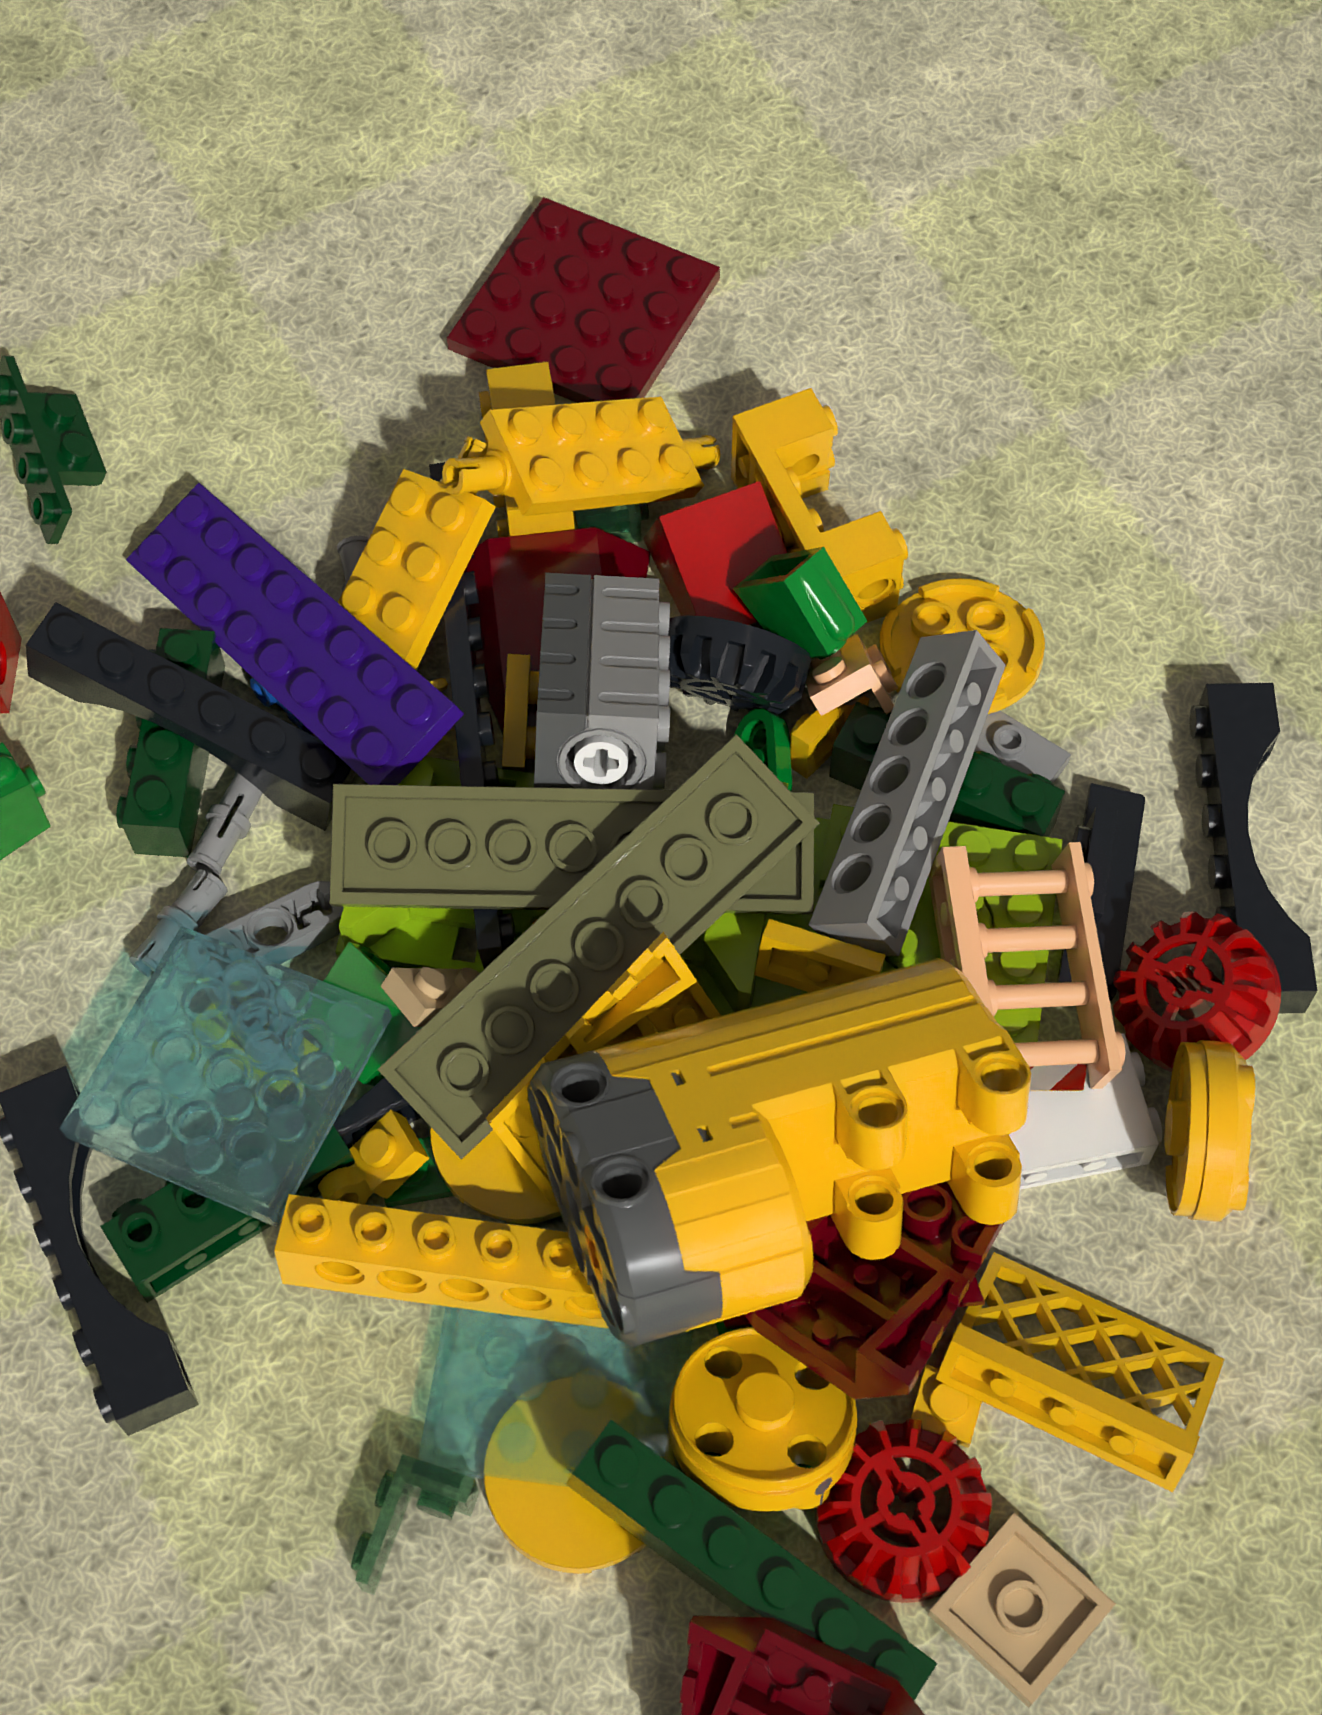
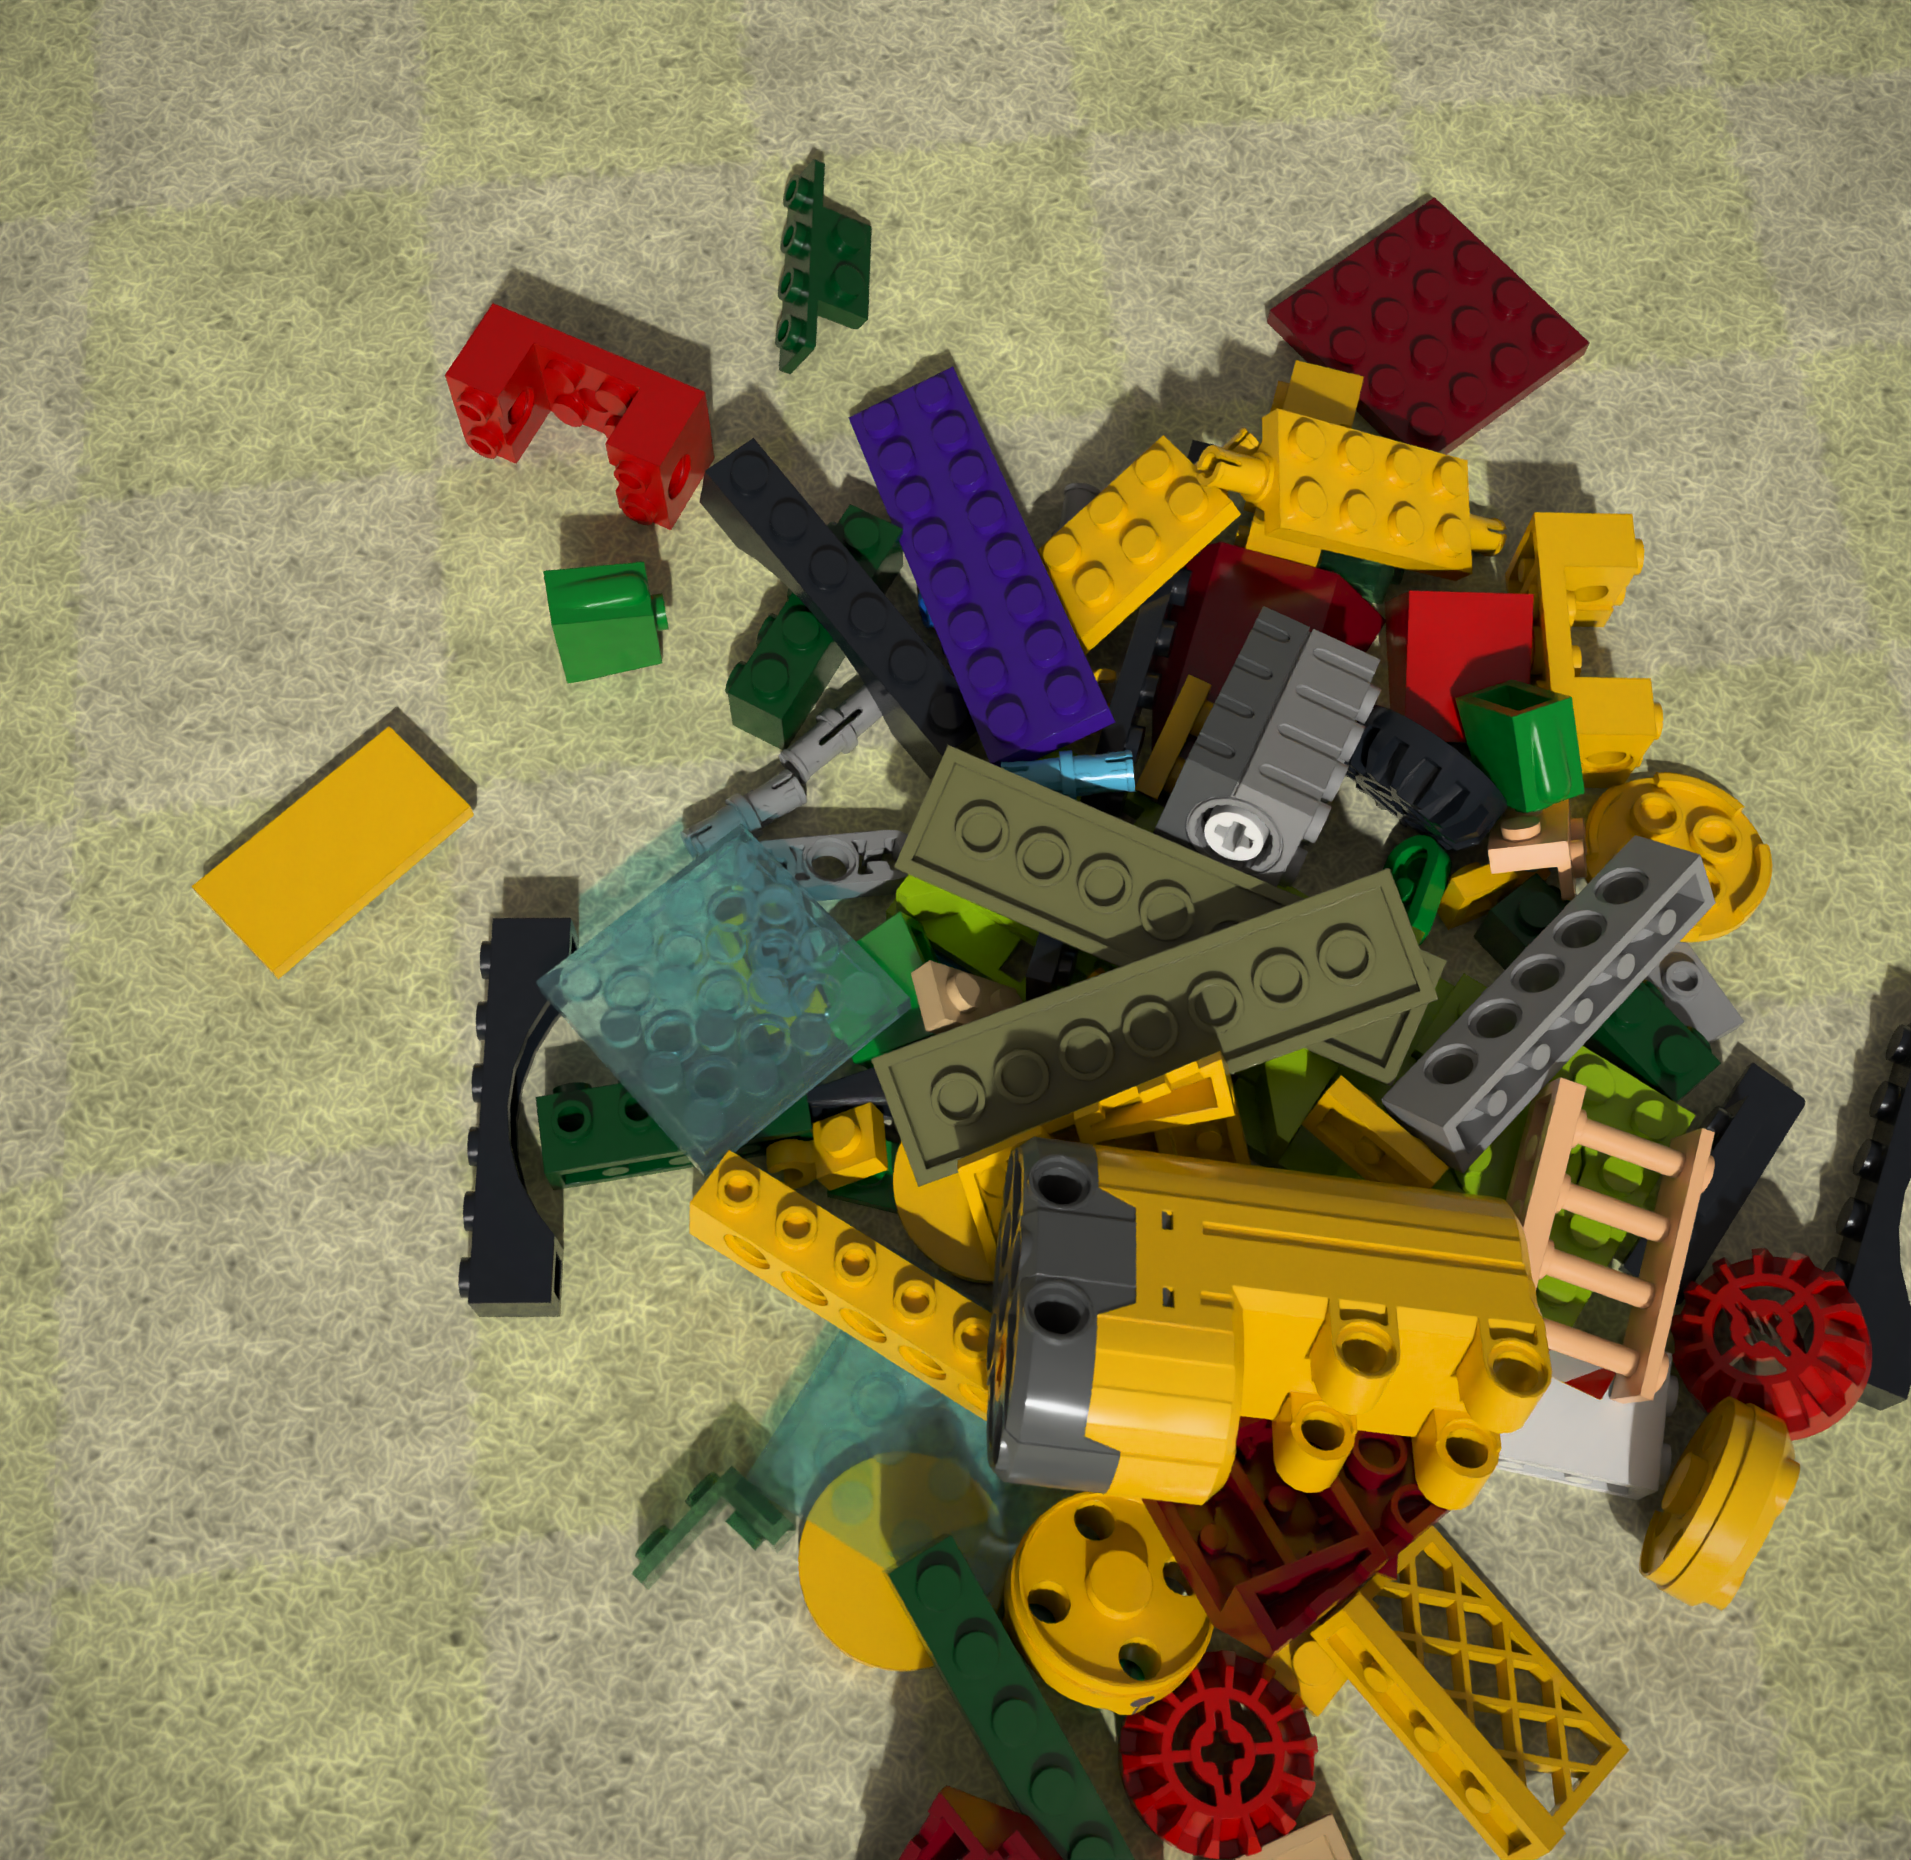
camera: 20 degrees right, 5 degrees up
(456, 765) = (1079, 774): none -> medium azure pin

